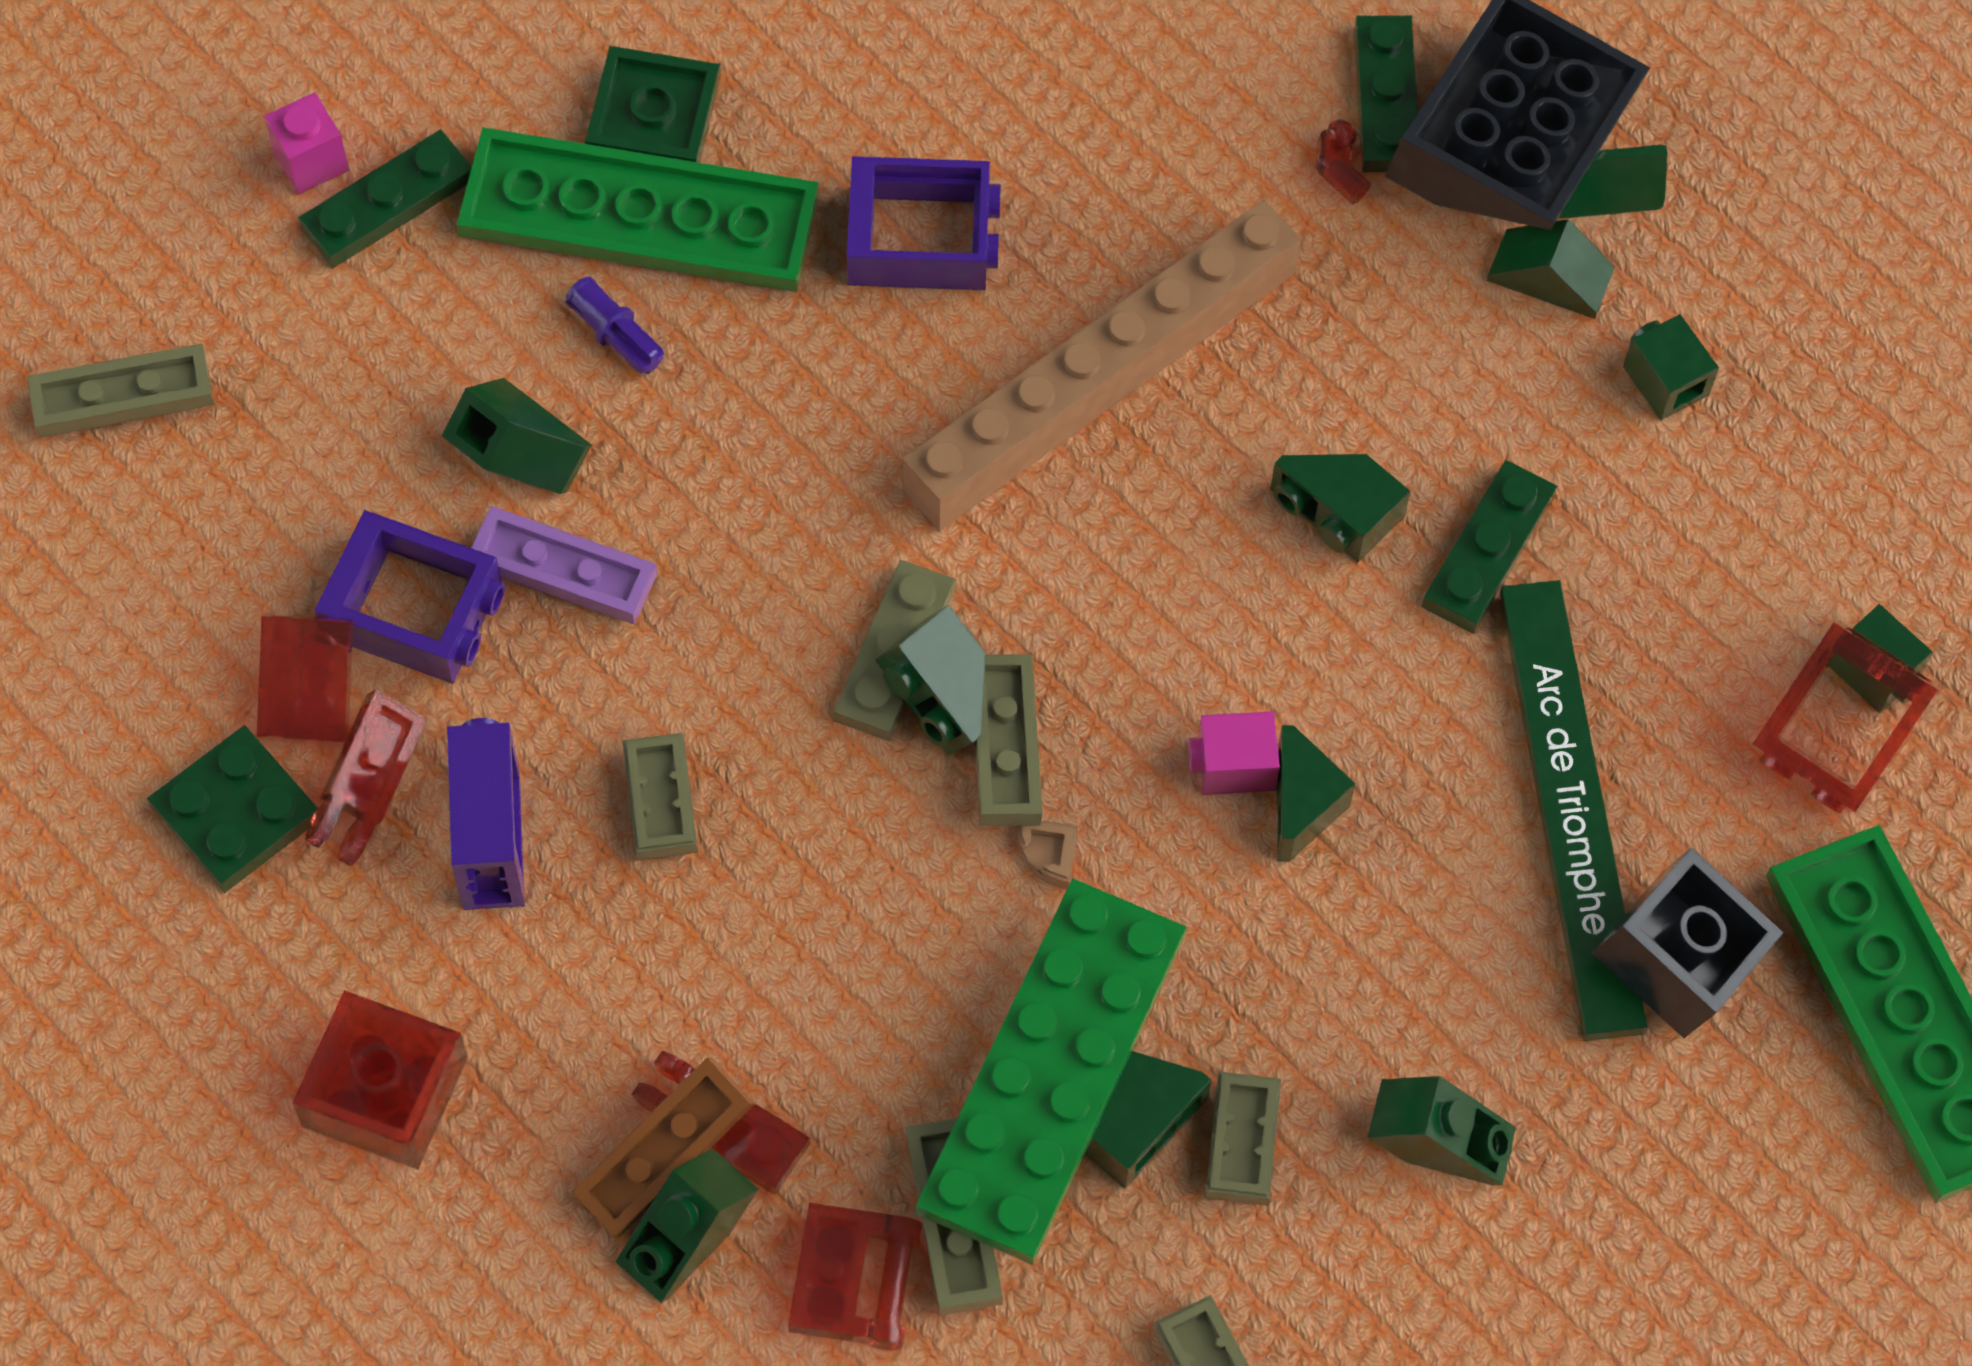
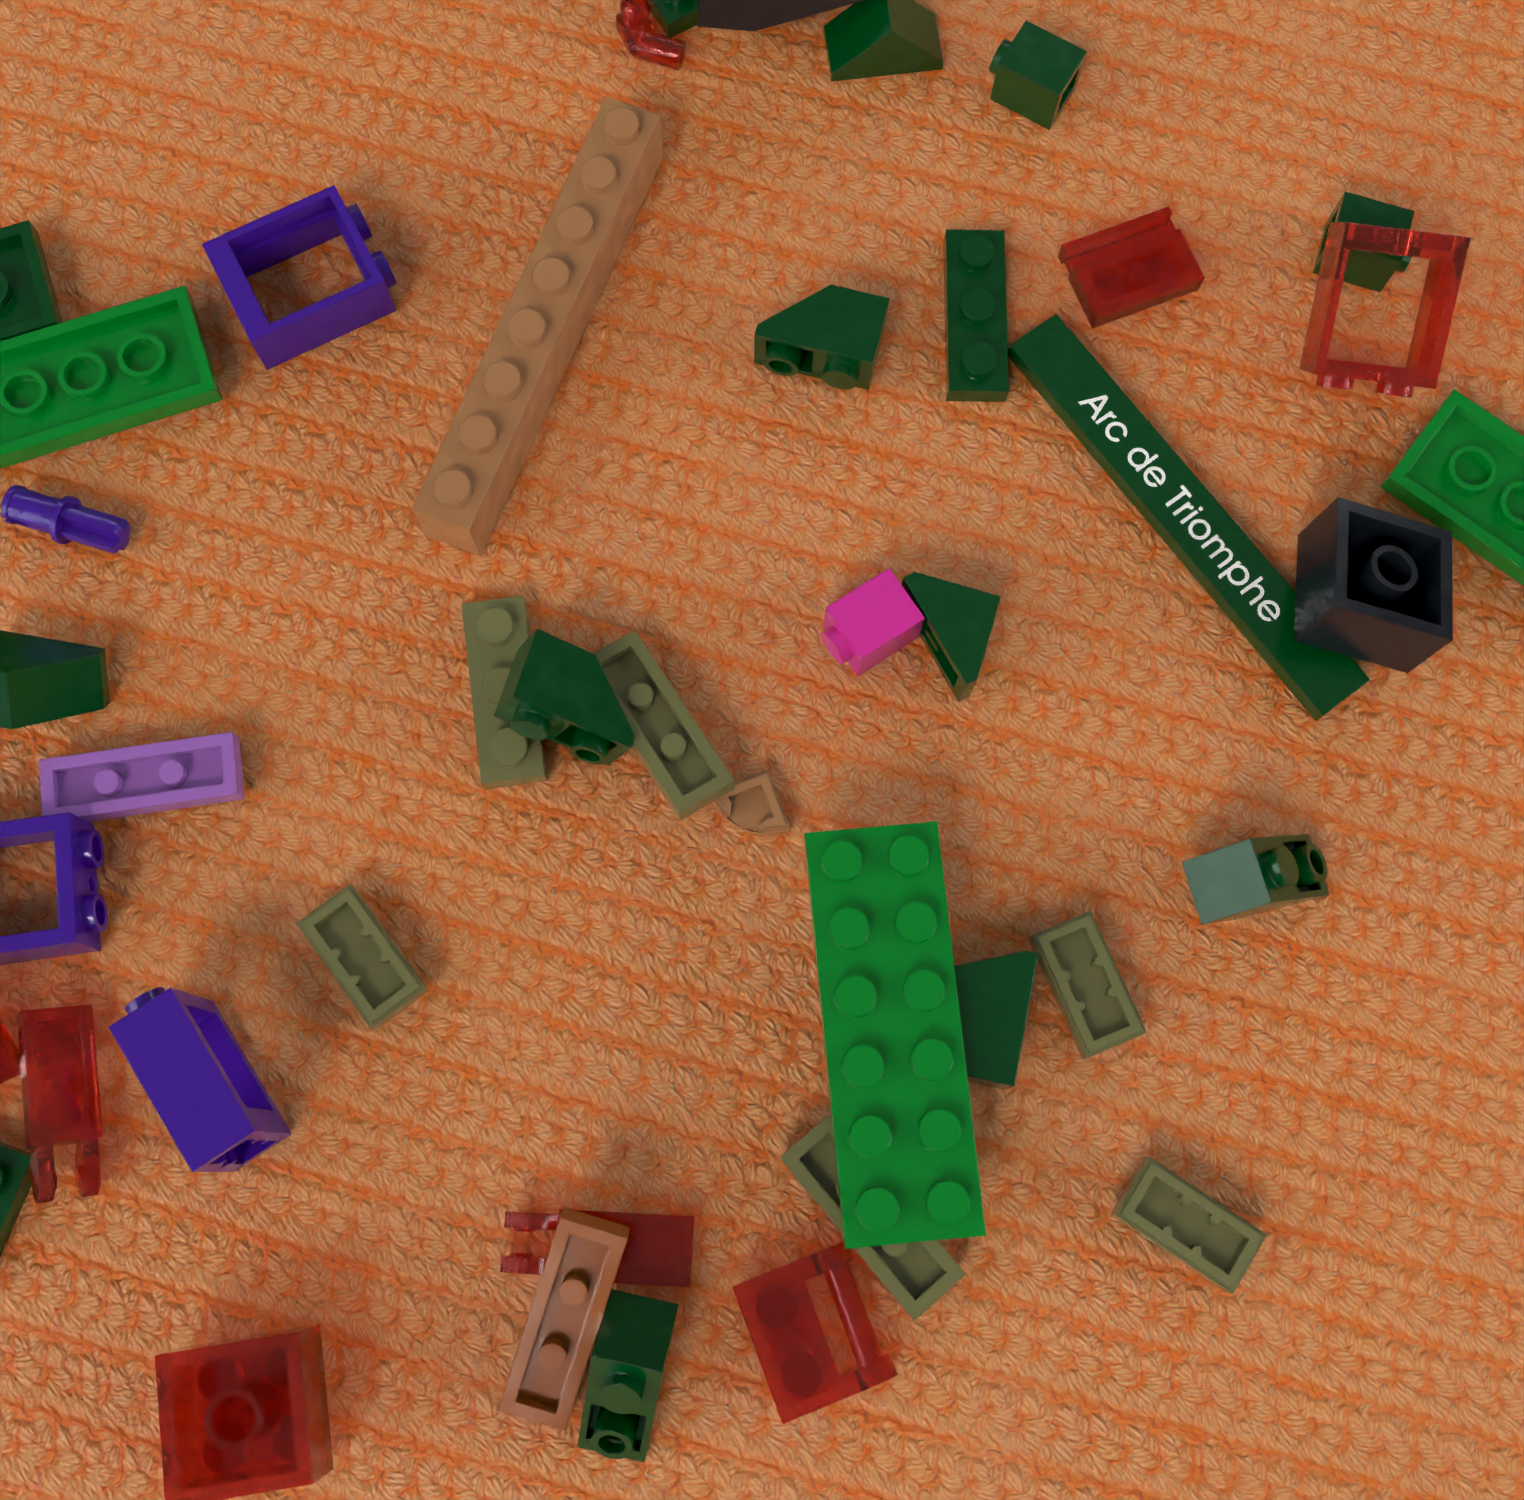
camera: 30 degrees left, 10 degrees up
(1653, 574) = (1130, 267): none -> clear red plate

